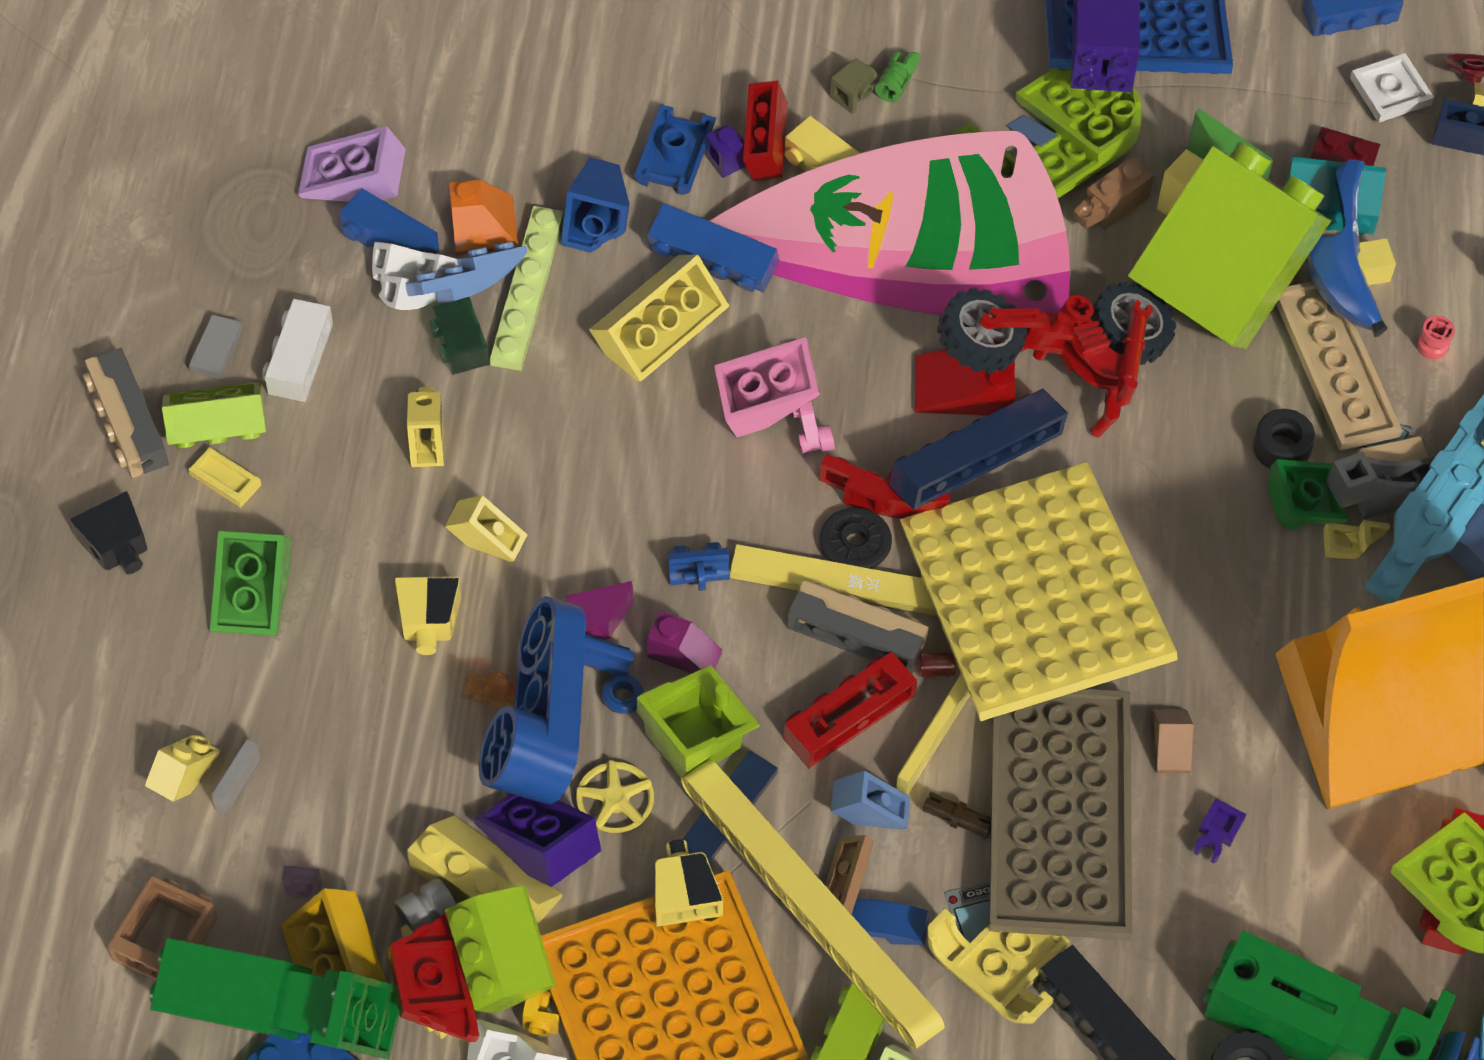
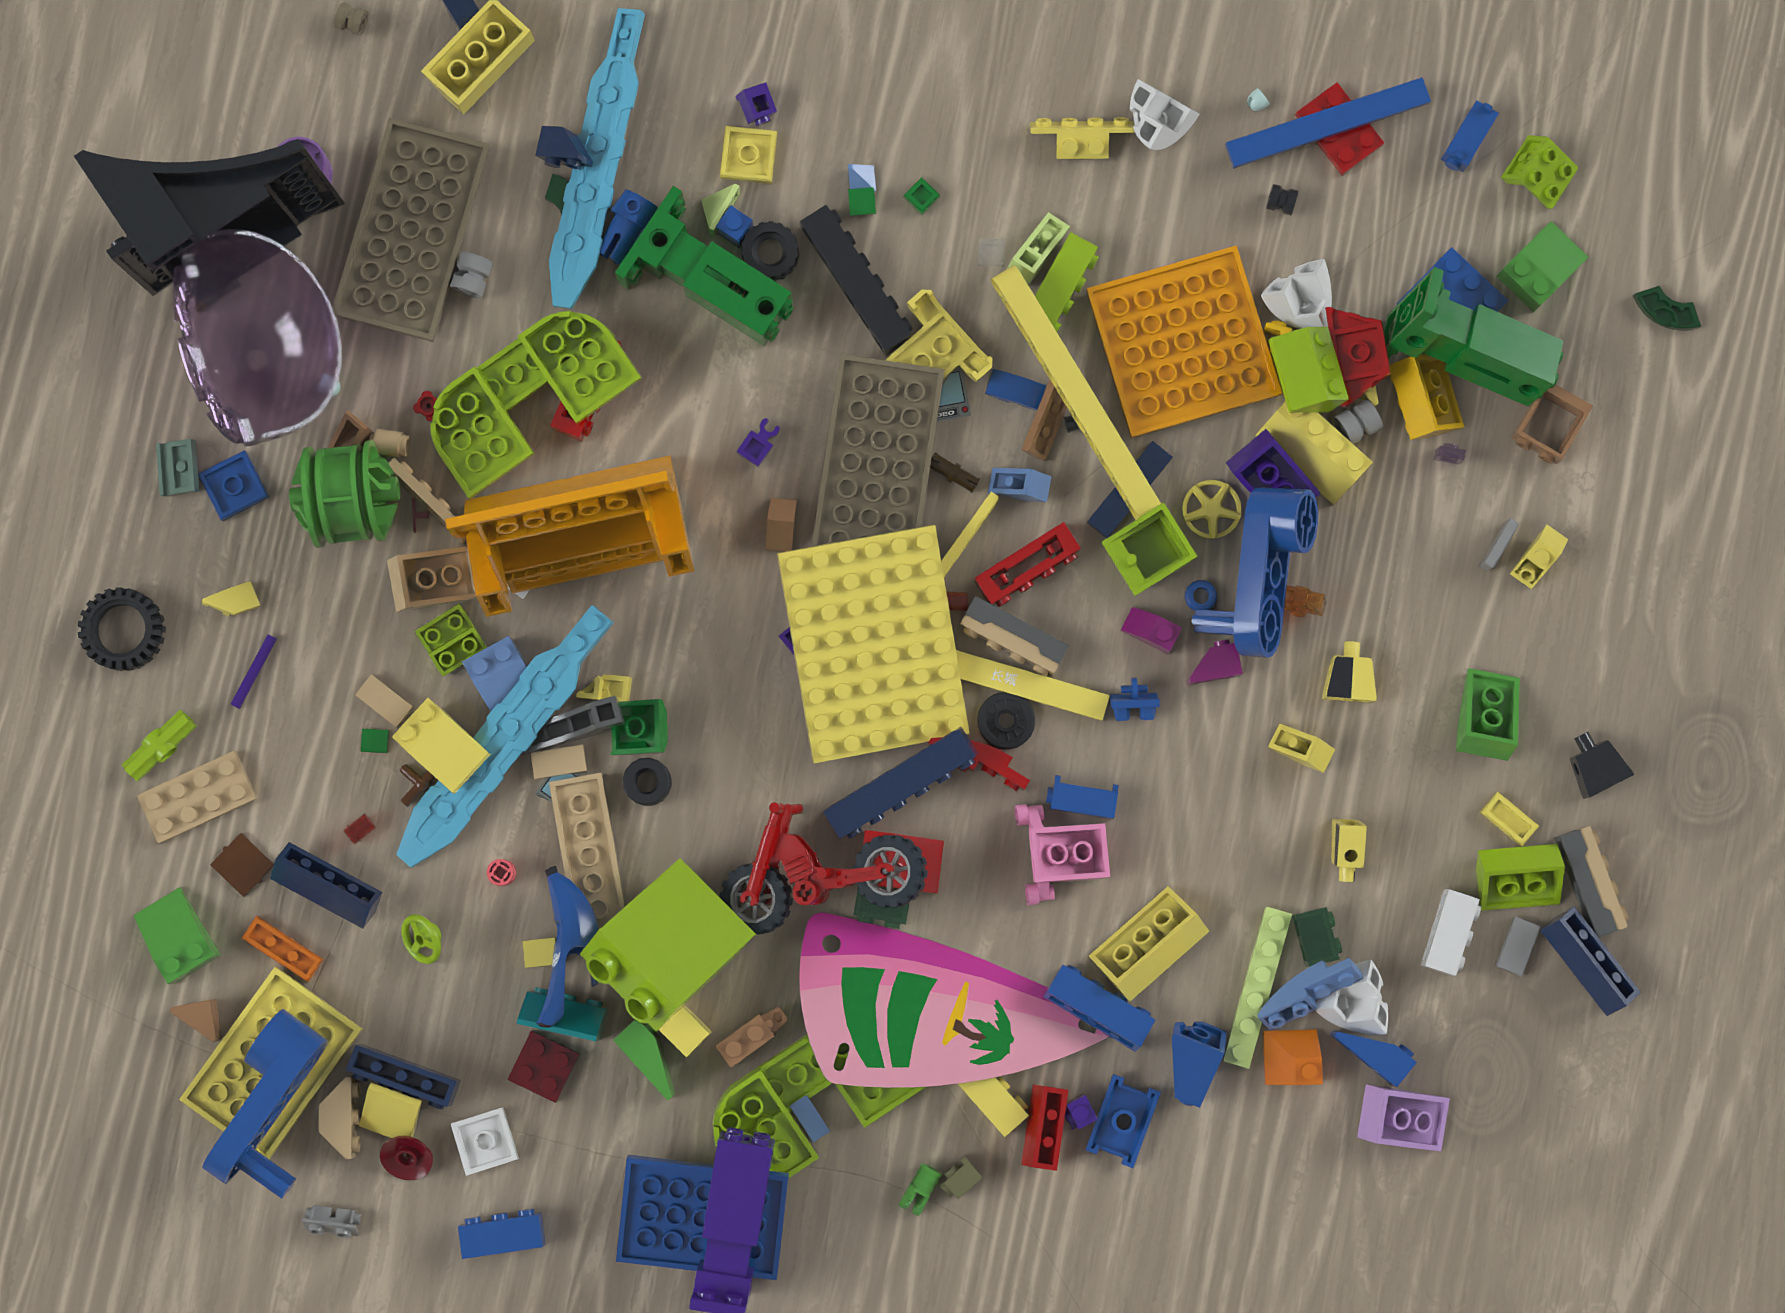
camera: 175 degrees left, 25 degrees up
(130, 327) = (1590, 961): none -> dark blue brick
(685, 887) = (1167, 417): light yellow torso -> none
(753, 455) = (1082, 799): none -> blue brick

